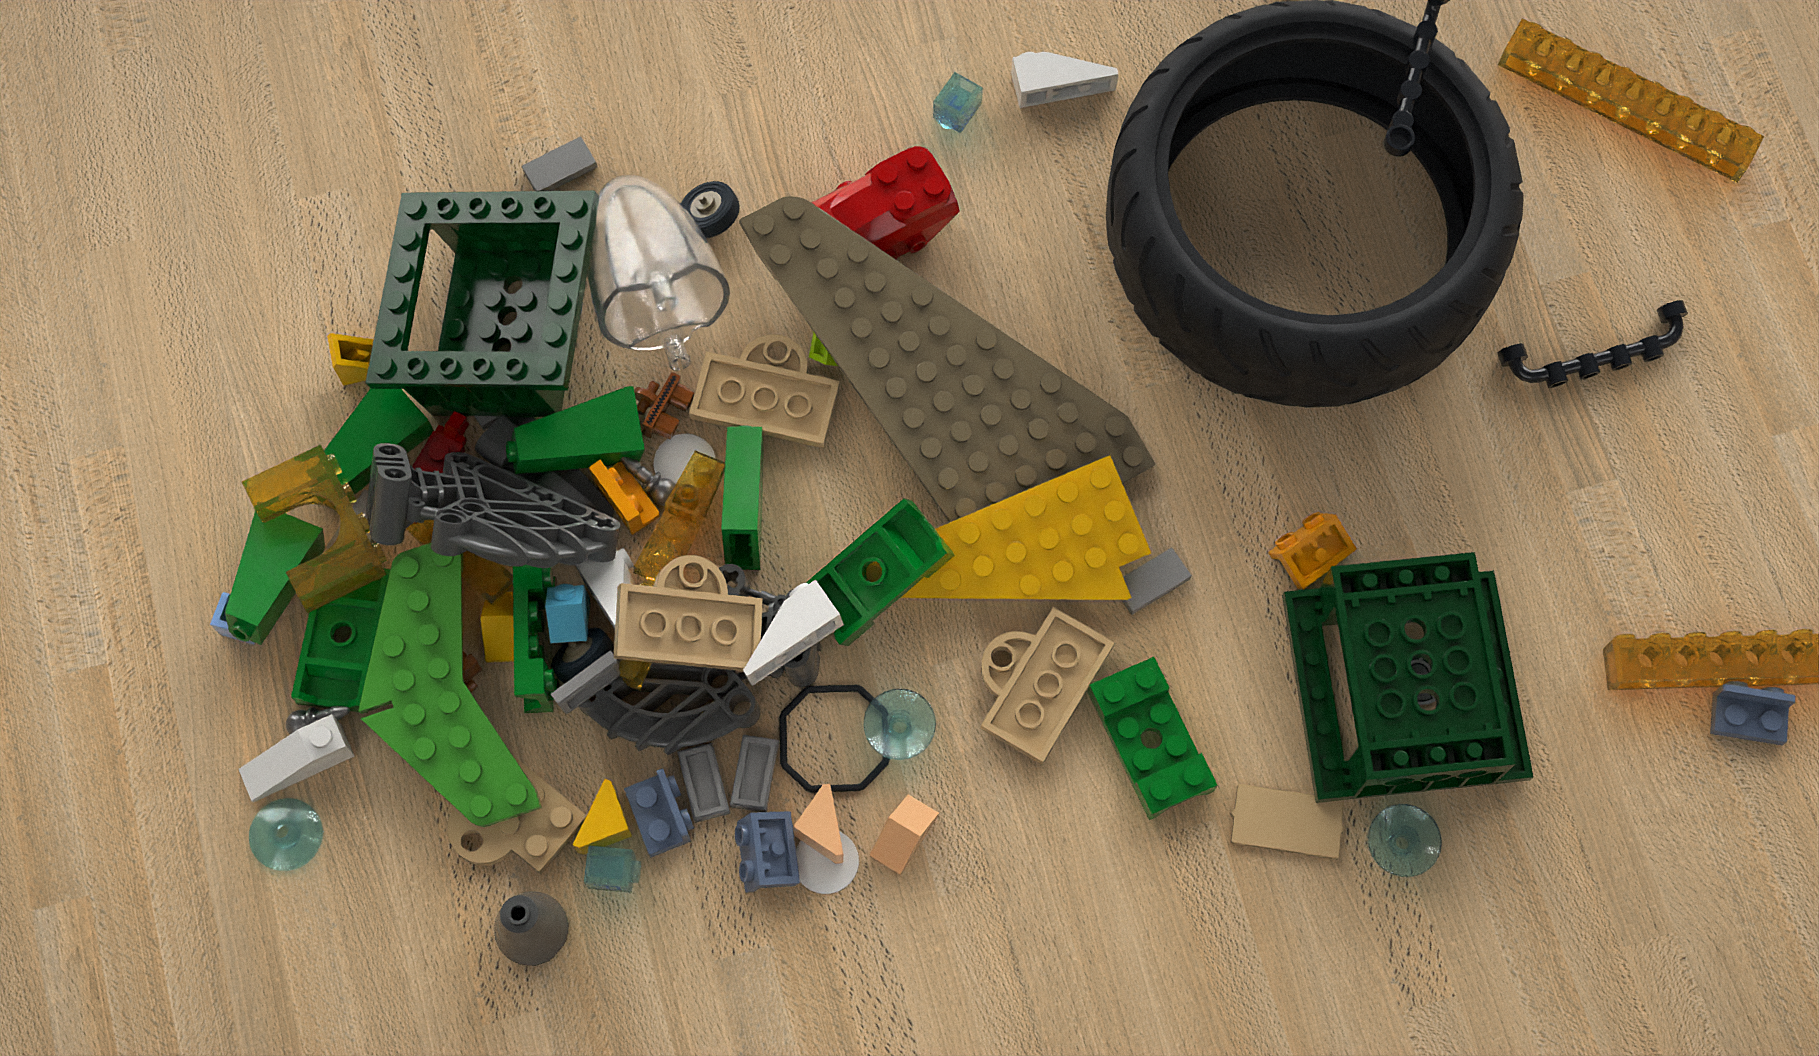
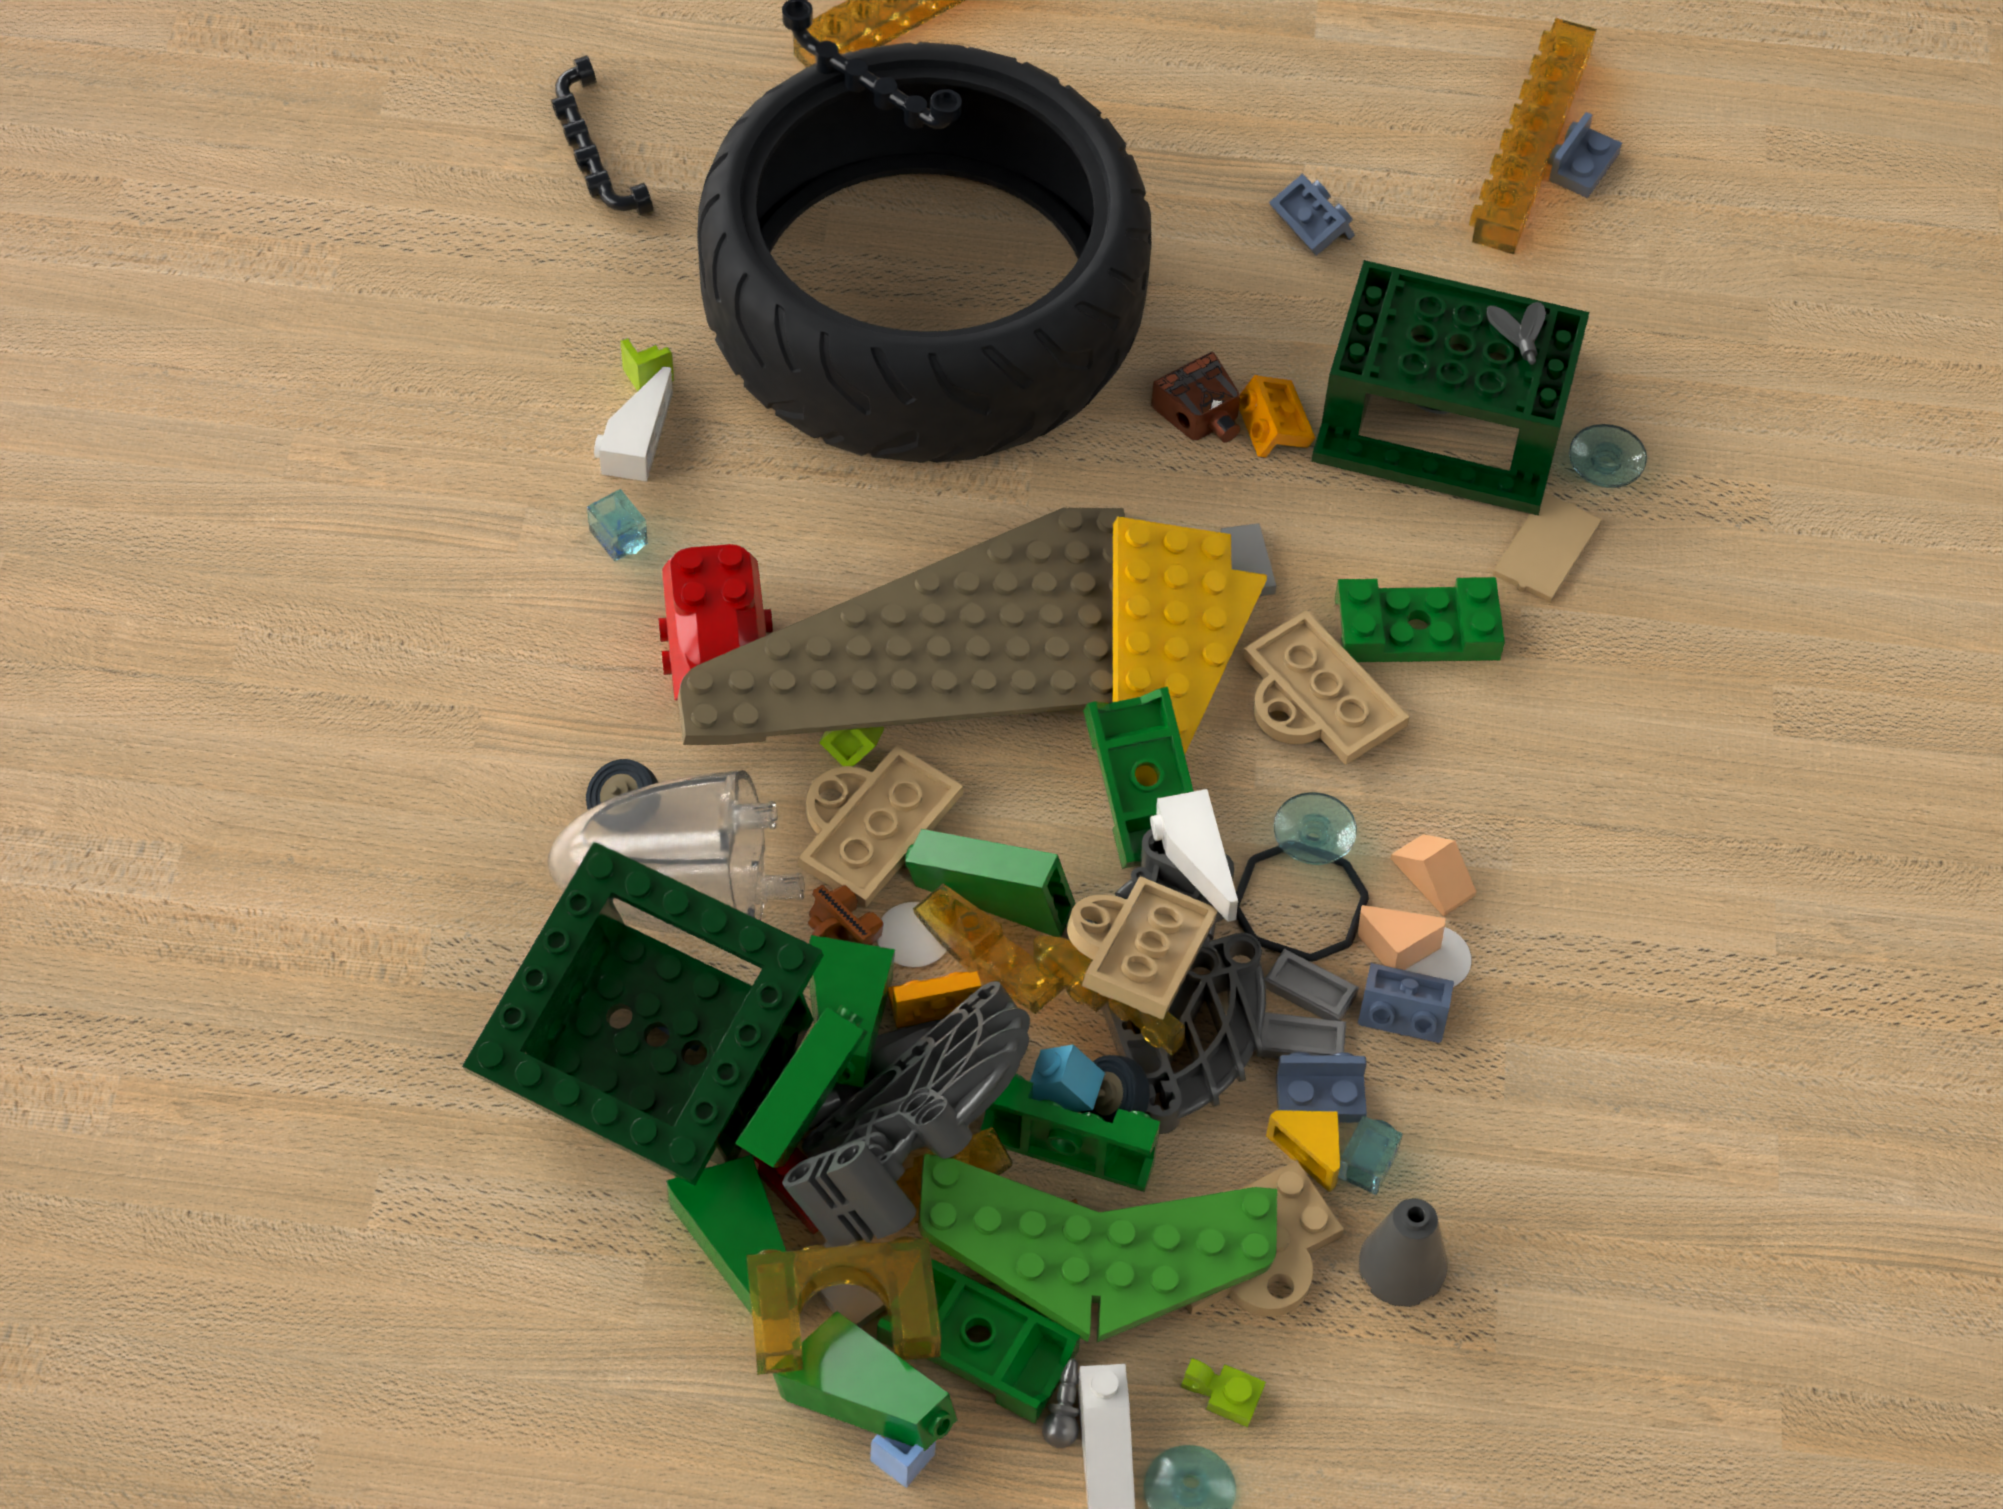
camera: 70 degrees left, 15 degrees down
(350, 357) = (625, 1218): yellow slope -> none
(371, 836) = (1231, 1393): none -> lime plate
(465, 425) = (803, 1087): none -> green slope
(498, 629) = (1041, 1167): yellow slope -> none
(559, 166) = (480, 932): light grey tile -> none
(587, 683) = (1159, 1083): light grey tile -> none
(604, 578) = (1068, 1027): white slope -> none
(658, 487) = (935, 964): flat silver bar -> none
(1124, 57) = (644, 364): none -> lime panel
(1298, 483) = (1199, 399): none -> copper torso
(1454, 711) = (1520, 335): none -> dark grey piece
(1553, 503) = (1310, 214): none -> sand blue bracket
(1588, 364) = (1183, 111): black bar -> none

